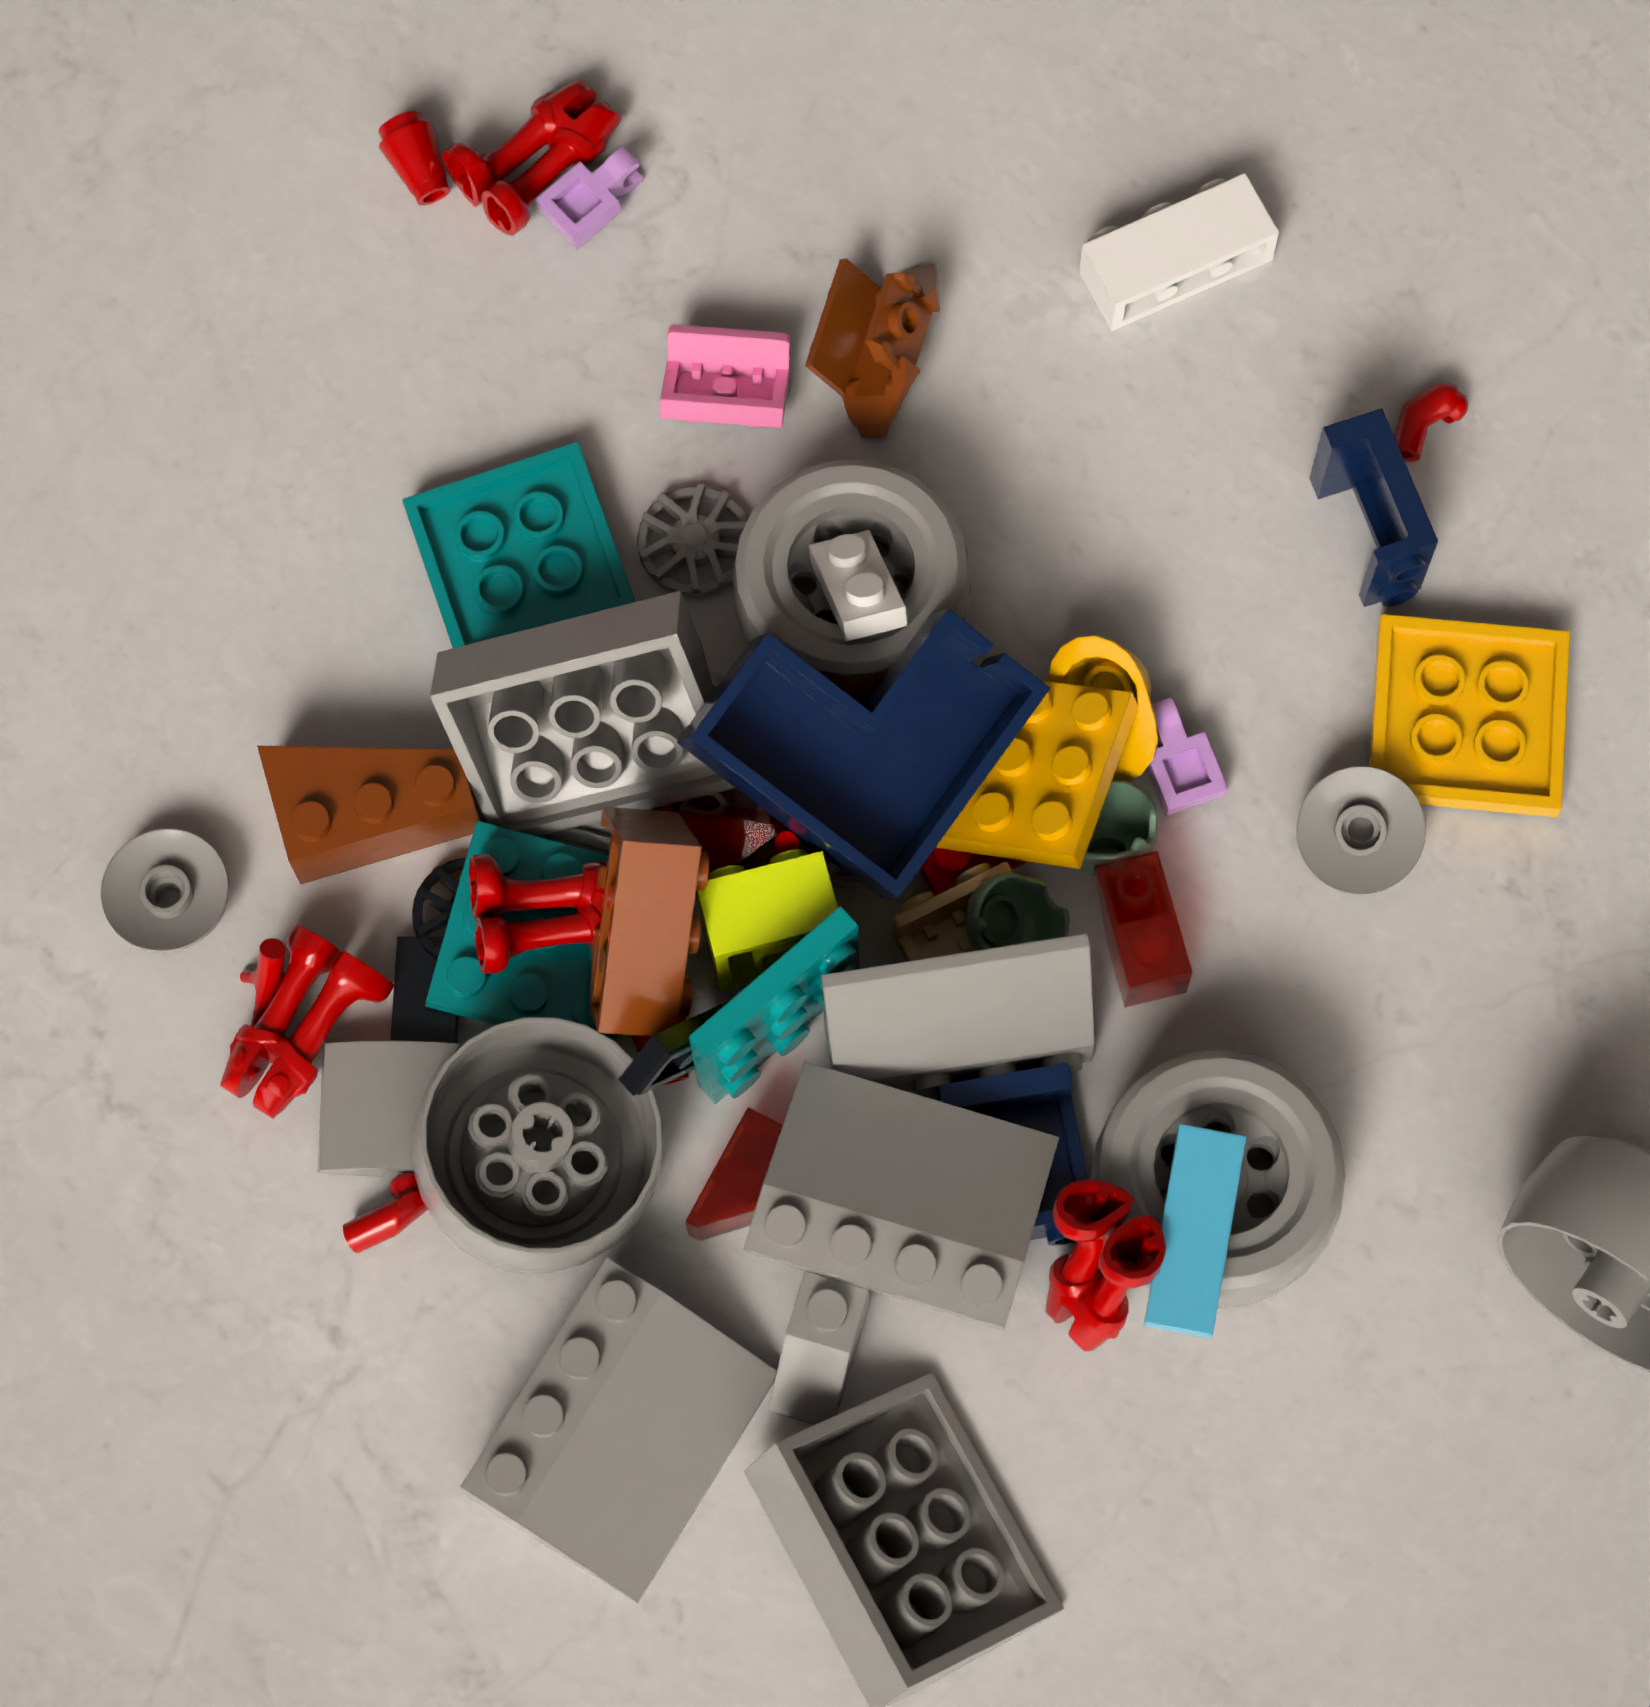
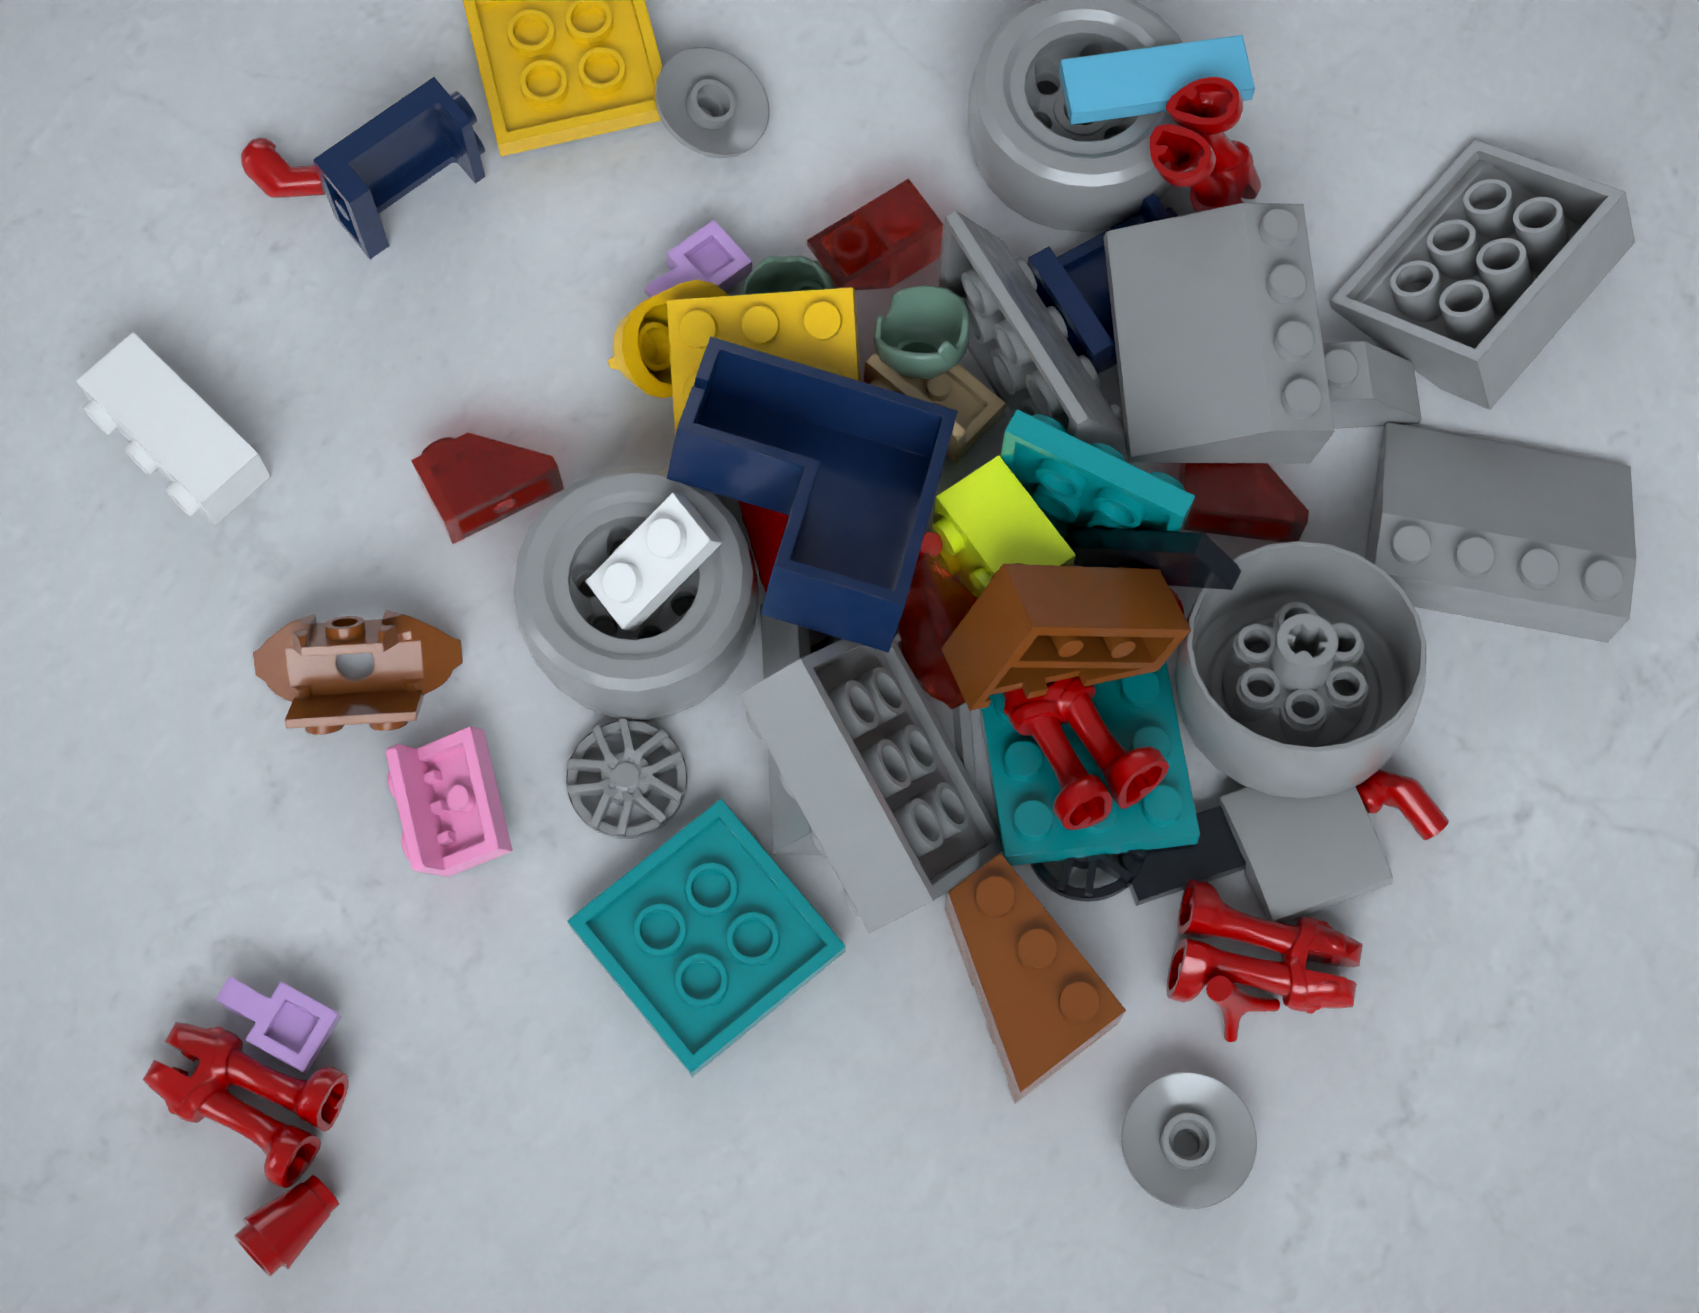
camera: 115 degrees left, 0 degrees up
(1027, 493) = (482, 481): none -> clear red slope

